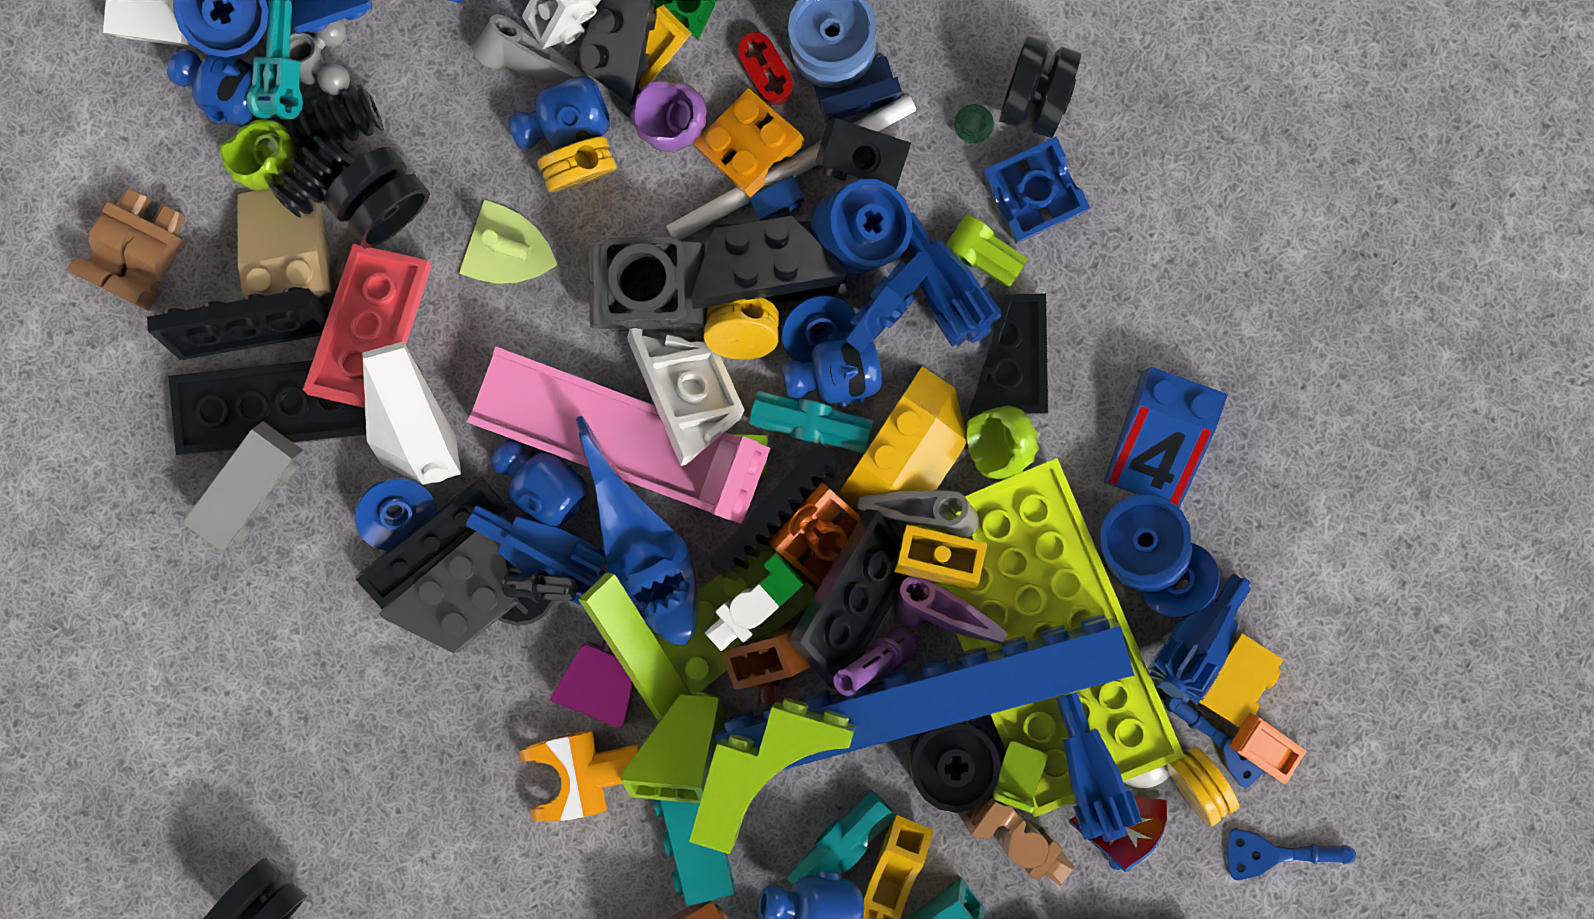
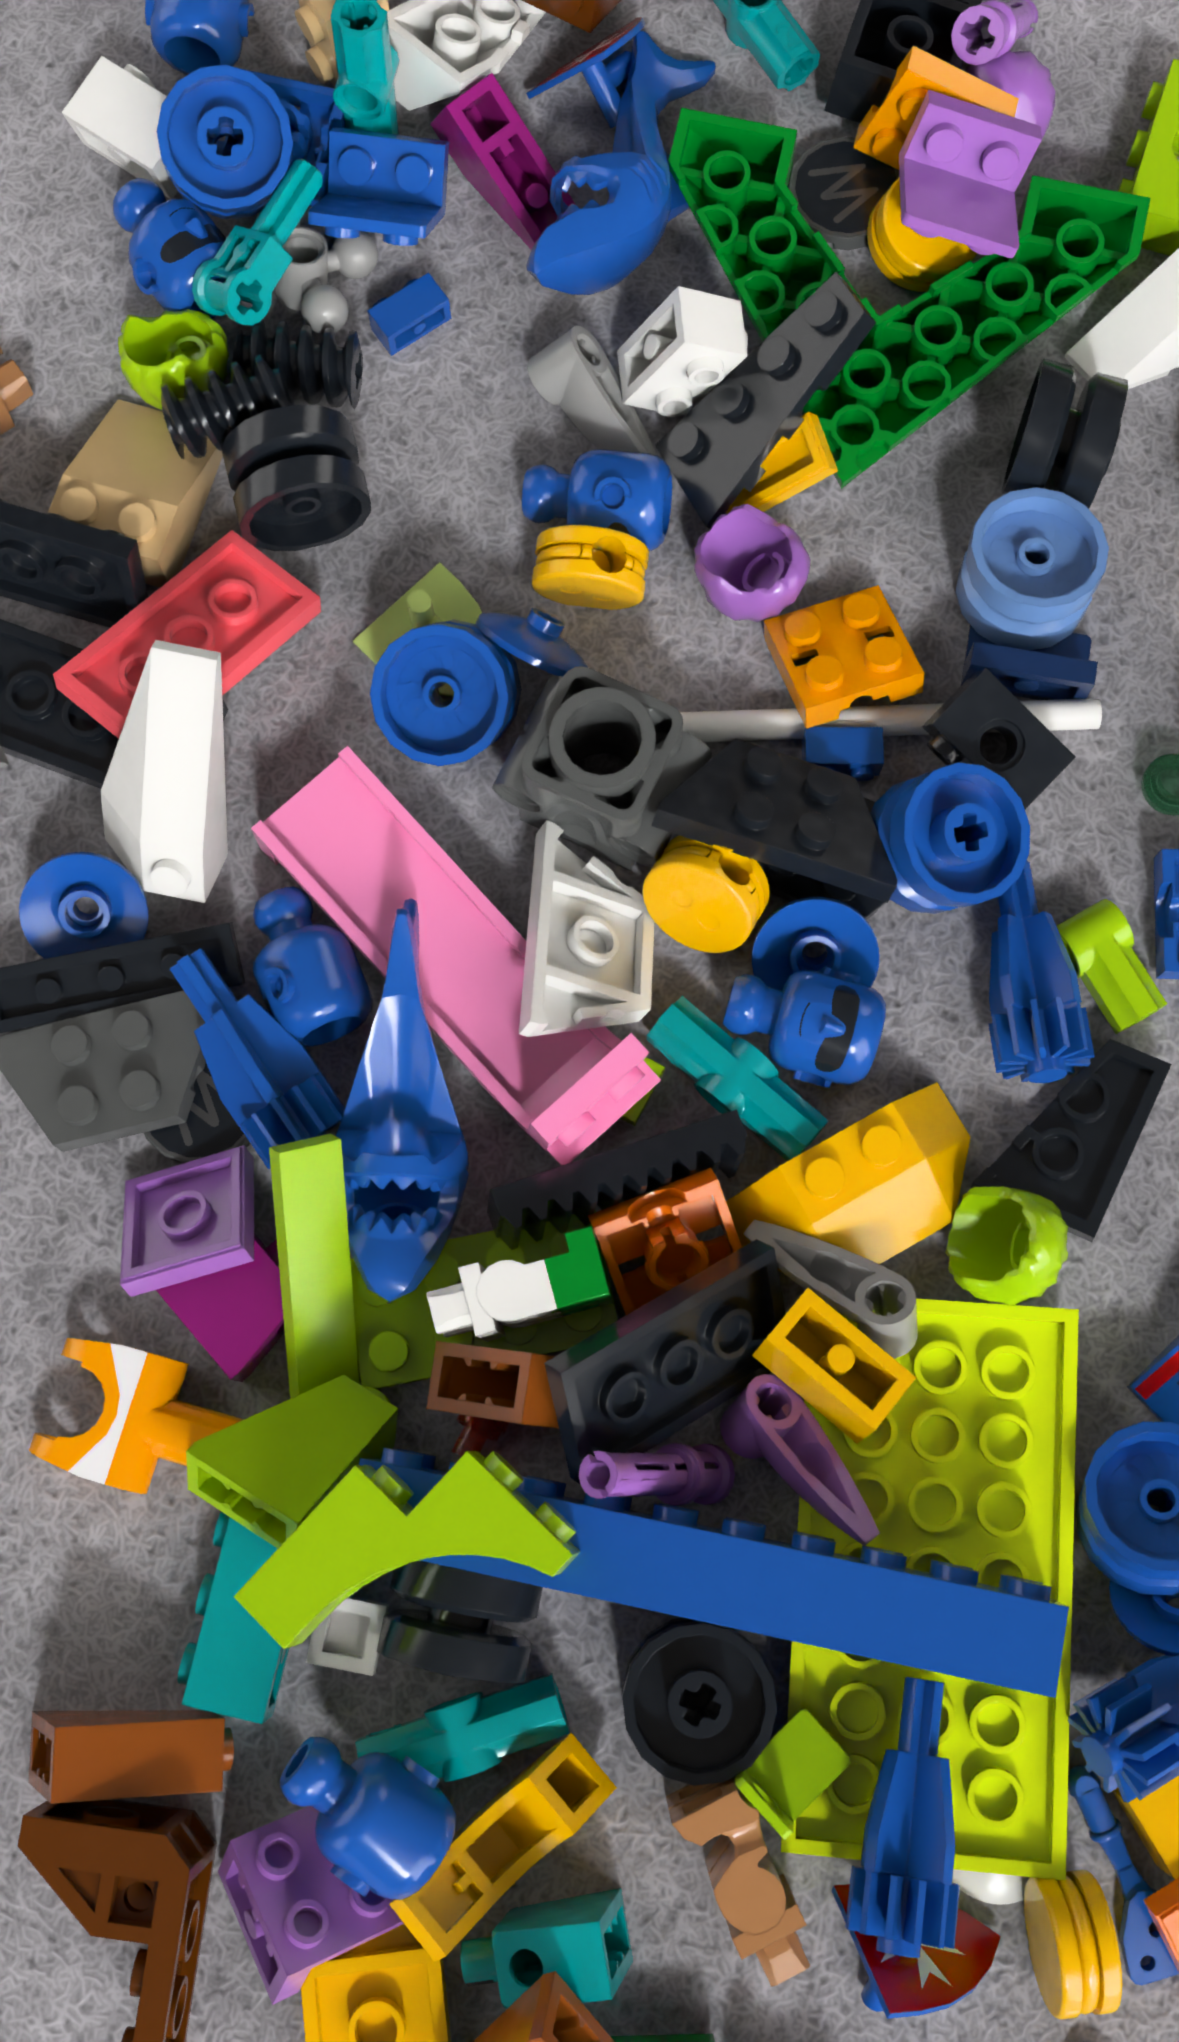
camera: 25 degrees right, 10 degrees down
(383, 52) = (409, 313): none -> blue piece
(540, 586) = (226, 1108): black axle -> none
(547, 301) = (408, 697): none -> blue wheel
(551, 655) = (188, 1221): none -> medium lavender tile
(568, 228) = (532, 639): none -> blue dish
(756, 826) = (349, 1637): none -> white plate
(773, 64) = (927, 573): red beam -> none
(811, 792) = (458, 1629): none -> black wheel
(888, 302) = (935, 958): blue brick -> none

